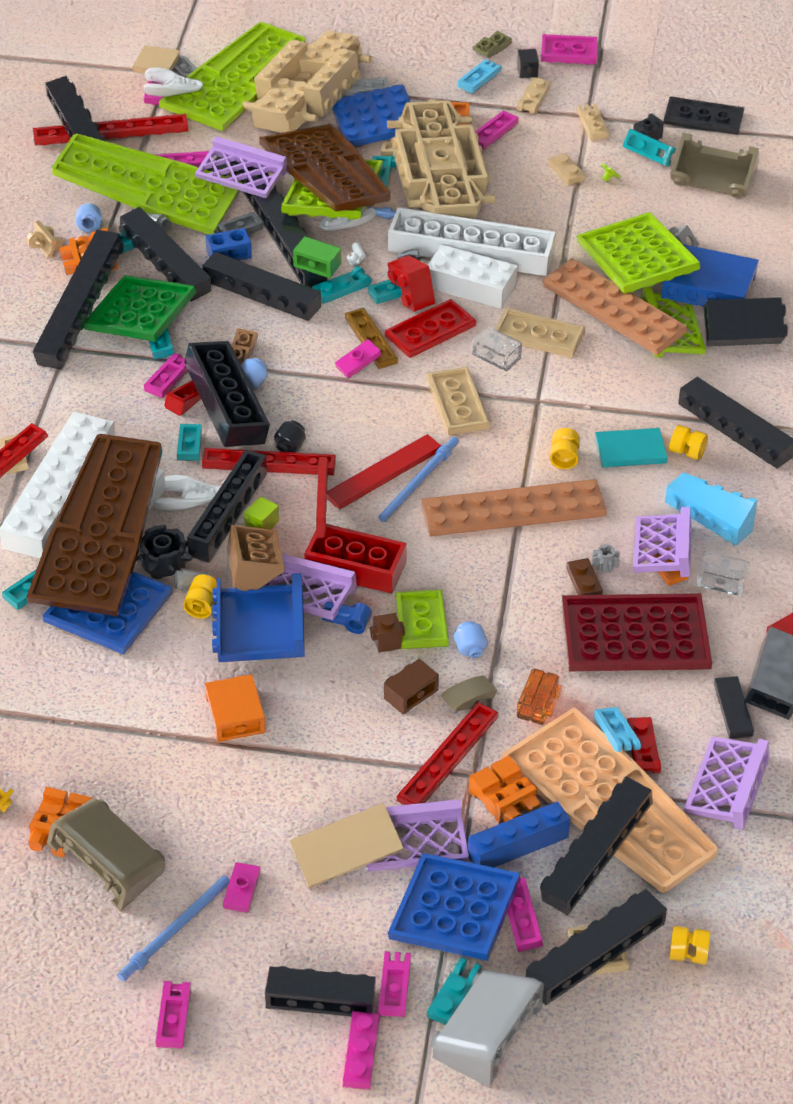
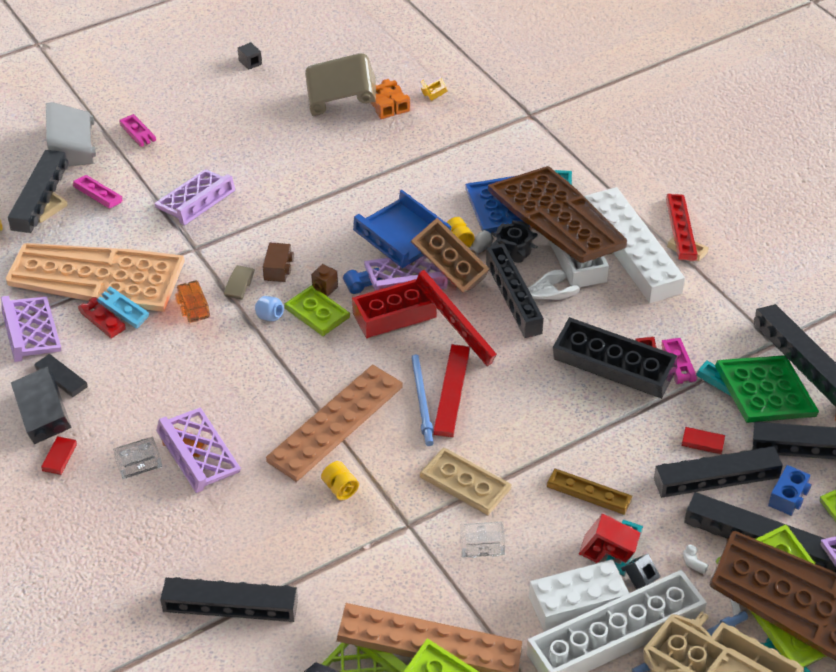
camera: 140 degrees right, 0 degrees up
(139, 1014) = (249, 55): none -> black brick
(140, 959) = (276, 76): medium blue bar -> none
(173, 1015) = (235, 66): dark pink plate -> none
(189, 442) = (596, 318): teal plate -> none
(235, 707) = (366, 191): orange panel -> none
(236, 315) = (703, 440): none -> red tile
(241, 887) = (262, 128): dark pink plate -> none
(244, 344) = (661, 415): medium nougat slope -> none
(249, 222) = (811, 516): dark grey plate -> none
(255, 372) = (625, 394): light blue head -> none
(262, 514) = (488, 303): lime brick -> none
(275, 461) = (524, 354): red tile -> none
(289, 436) = (539, 365): black head -> none
(317, 257) = (698, 500): bright green brick -> none
(319, 991) = (171, 106): black brick -> none
(343, 284) = (668, 522): teal plate -> none
(346, 845) = (223, 163): tan tile -> none
(358, 358) = (571, 459): dark pink plate -> none
(361, 1050) = (129, 102): dark pink plate -> none
(430, 328) = (557, 533): red tile -> none
(448, 755) = (218, 247): red tile -> none
(452, 992) = (103, 145): teal hinge -> none
(454, 906) = (136, 171): blue plate -> none
(504, 790) = (162, 238): orange hips -> none
(519, 836) = (132, 220): blue brick -> none
(541, 332) = (471, 588): tan tile -> none
(584, 577) = (236, 400): reddish brown plate -> none
(596, 845) = (79, 234): black brick -> none
(605, 558) = (231, 416): light grey gear -> none
(630, 447) = (296, 526): teal tile -> none
(636, 632) = (165, 381): dark red plate -> none
(687, 442) = (251, 549): yellow wheel -> none
(713, 507) = (187, 504): medium azure wedge -> none

